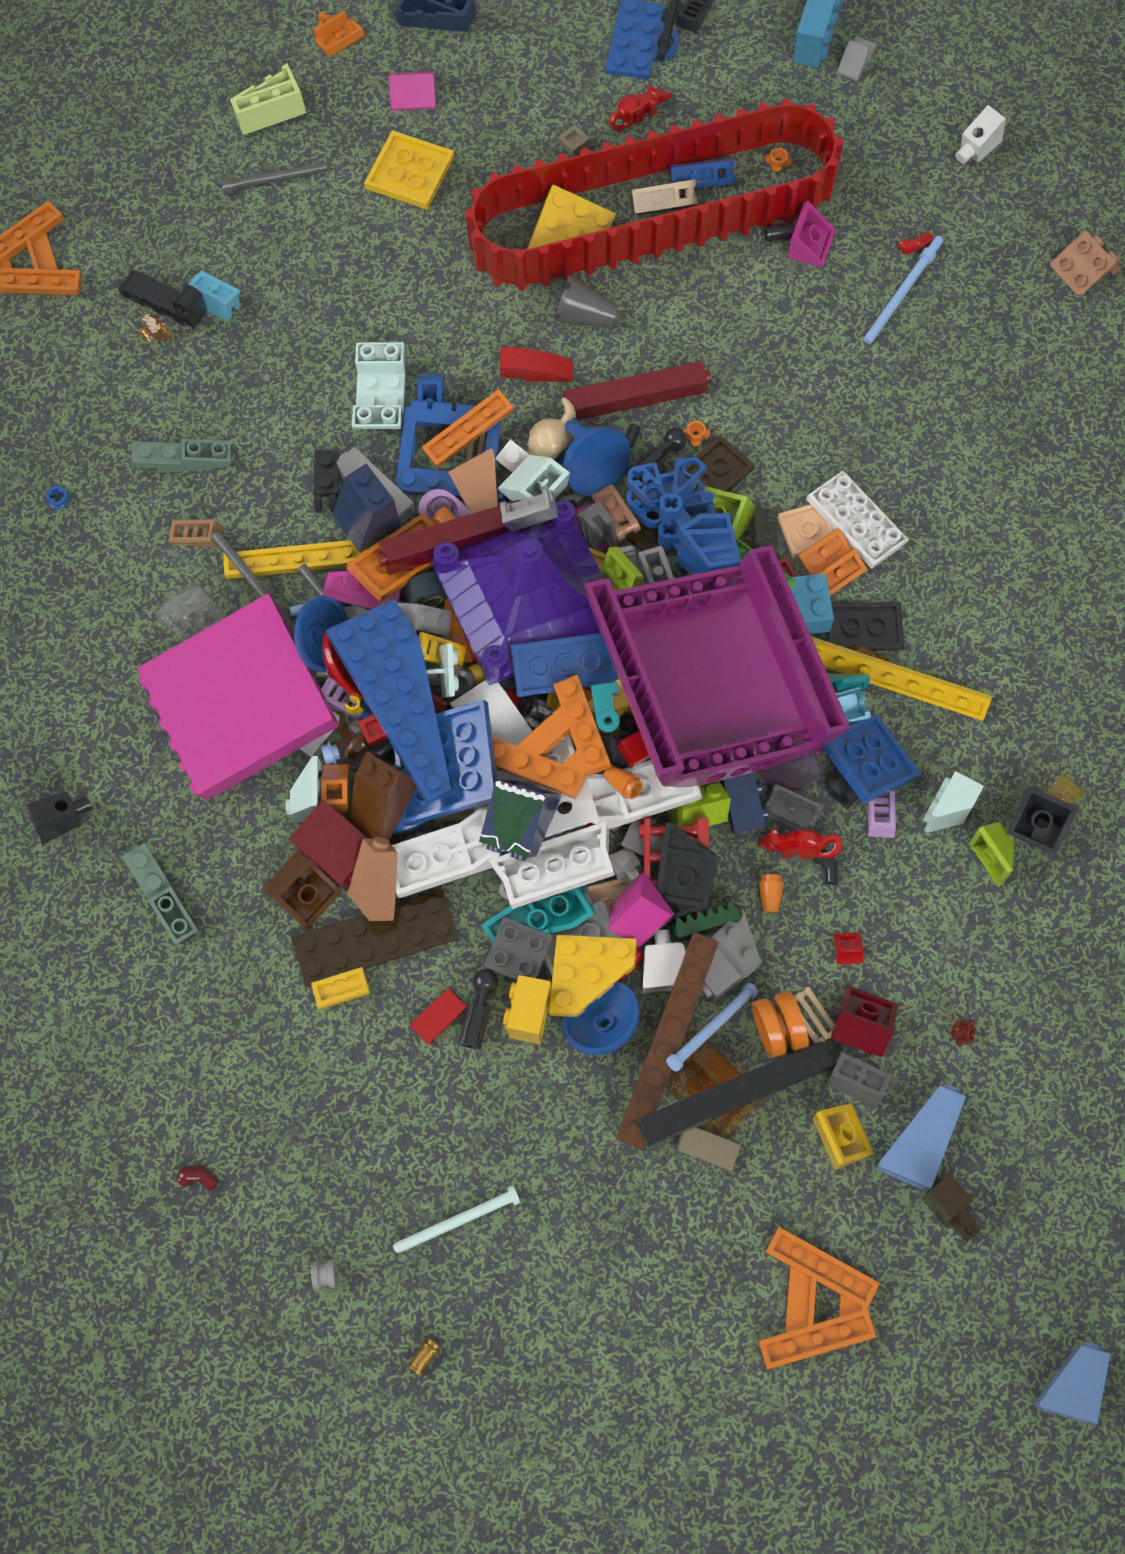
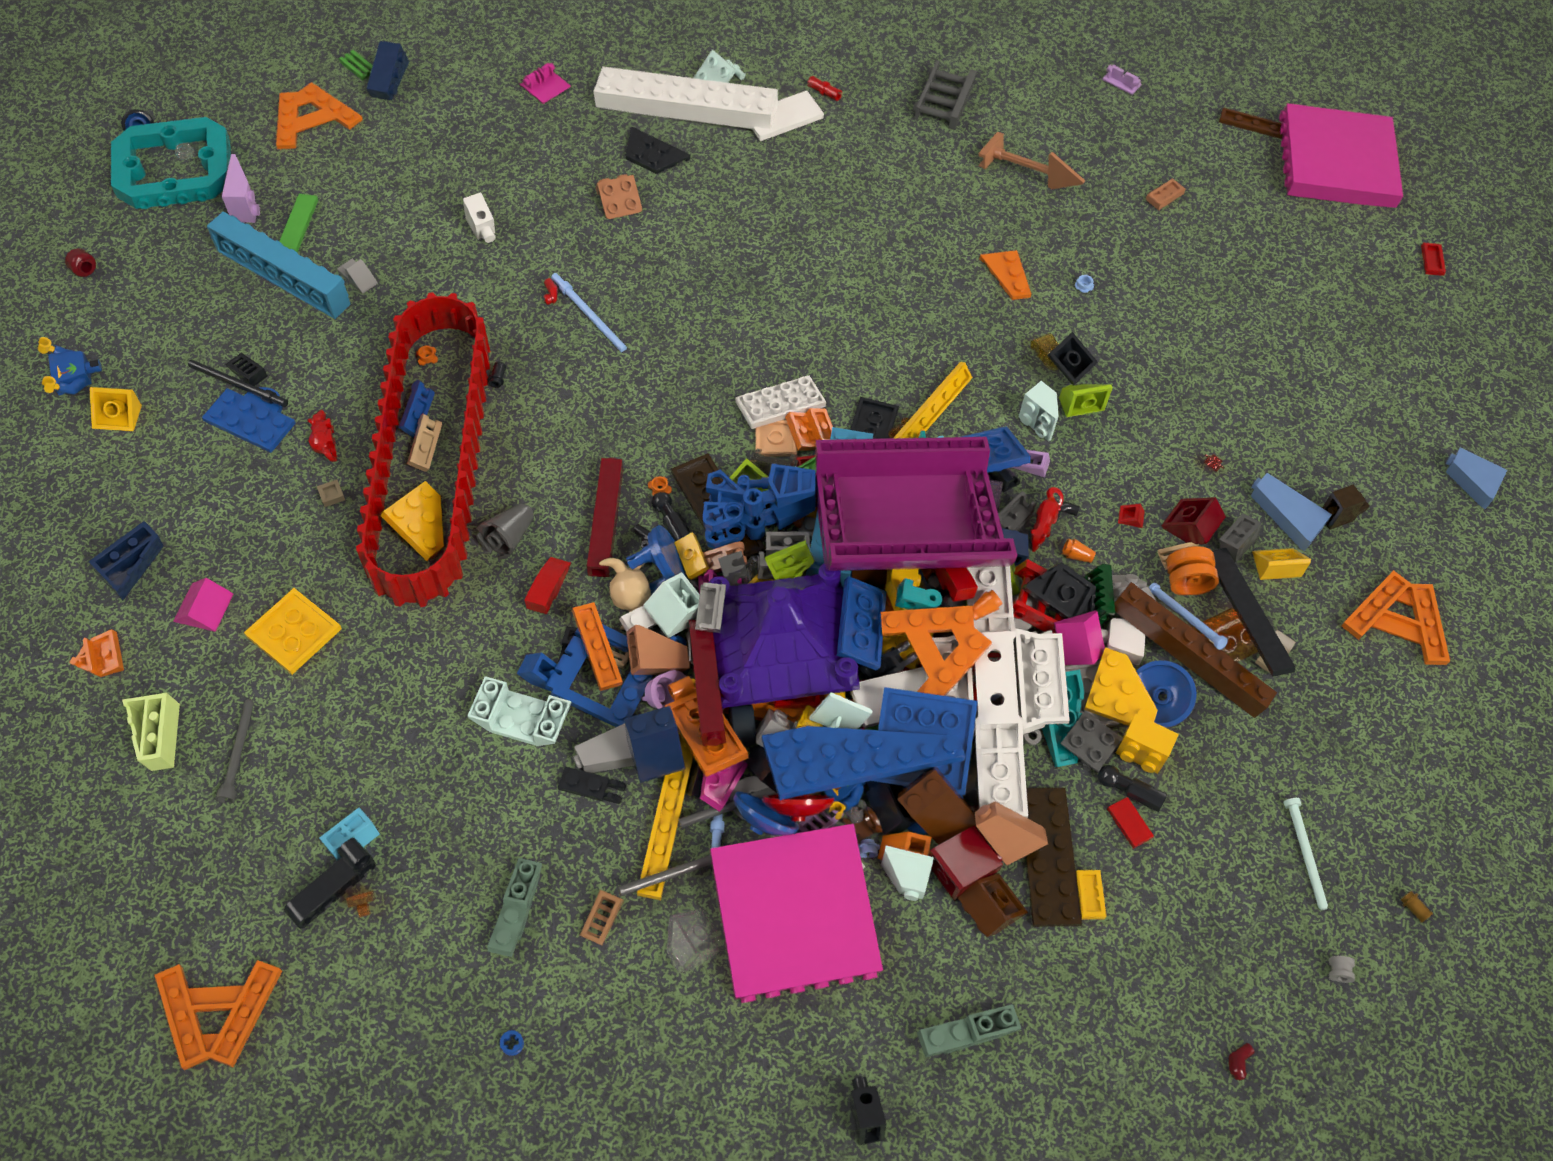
camera: 80 degrees left, 10 degrees down
(372, 730) = (868, 794): red tile -> none
(518, 818) = (1001, 687): slope -> none
(609, 486) = (691, 555): none -> yellow plate
(811, 237) = (513, 355): dark pink slope -> none

